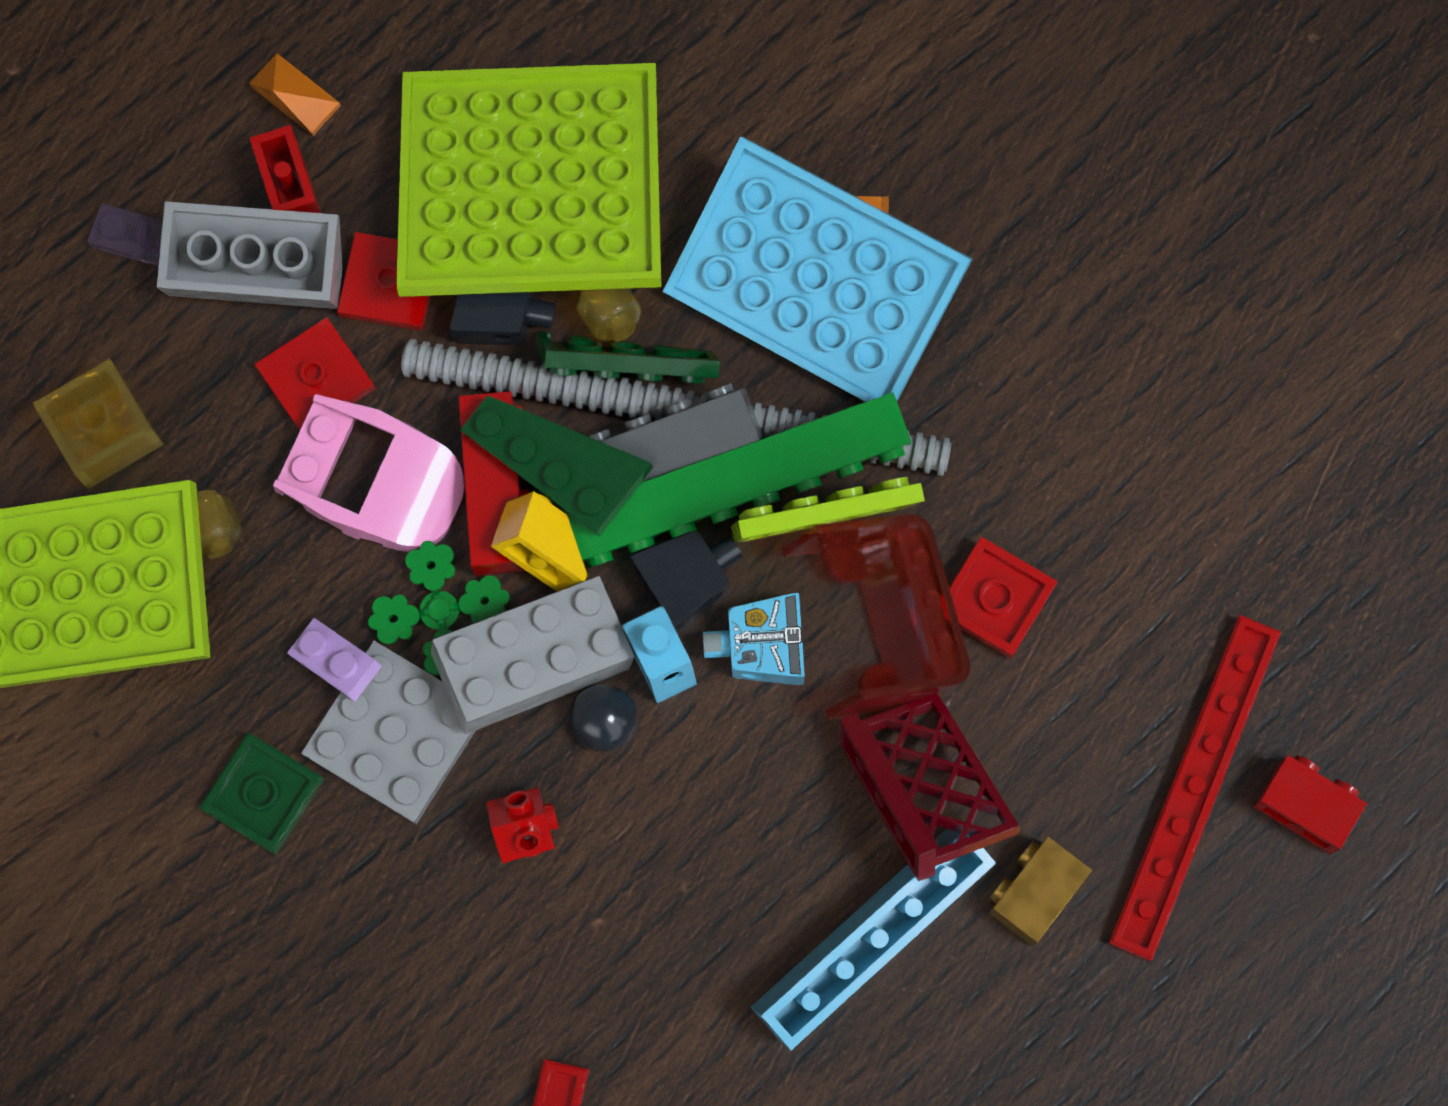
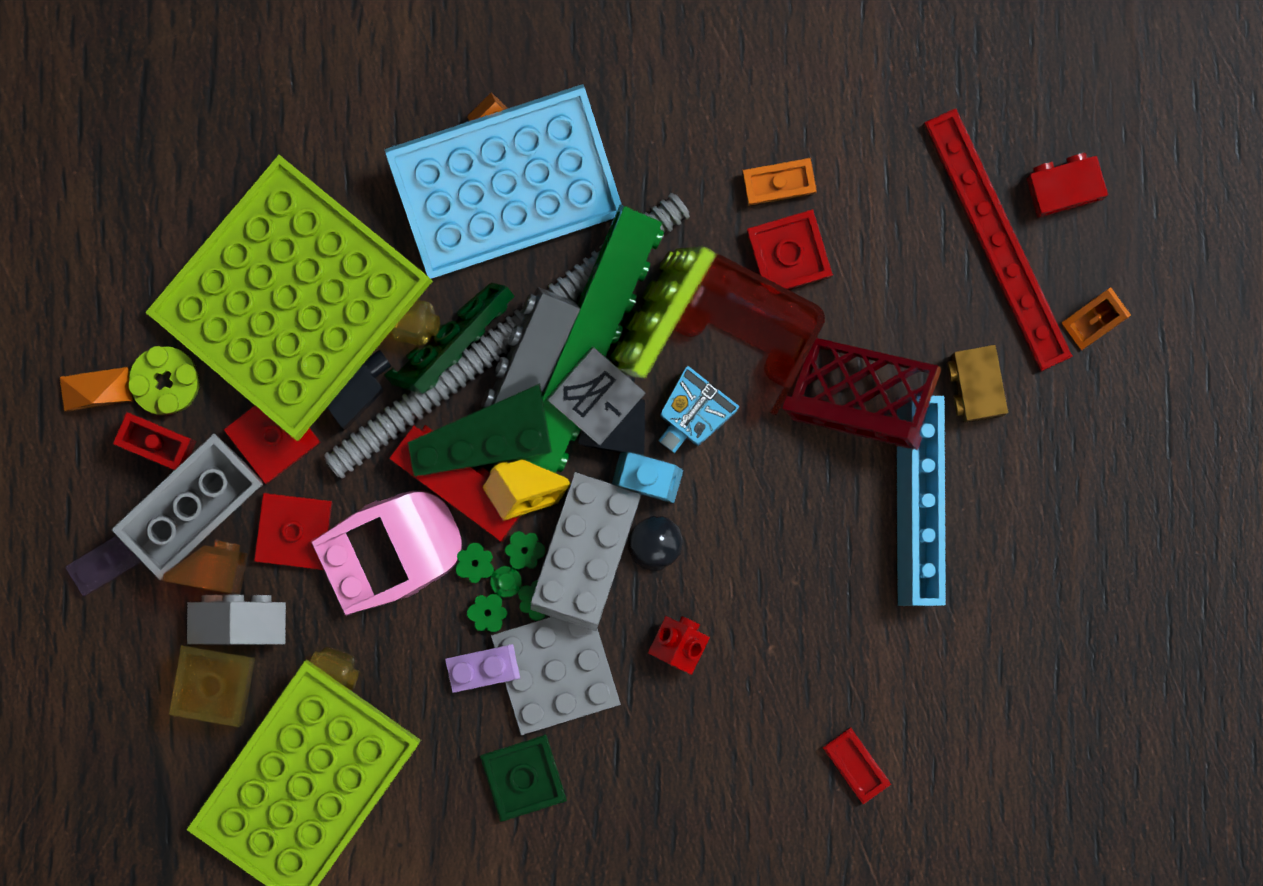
camera: 45 degrees left, 10 degrees up
(176, 389) = (236, 620): none -> light grey brick
(212, 327) = (211, 568): none -> clear orange slope
(352, 120) = (144, 383): none -> lime plate
(689, 529) = (596, 395): none -> flat silver tile
(1054, 528) = (779, 181): none -> orange plate
(1211, 949) = (1096, 318): none -> orange slope

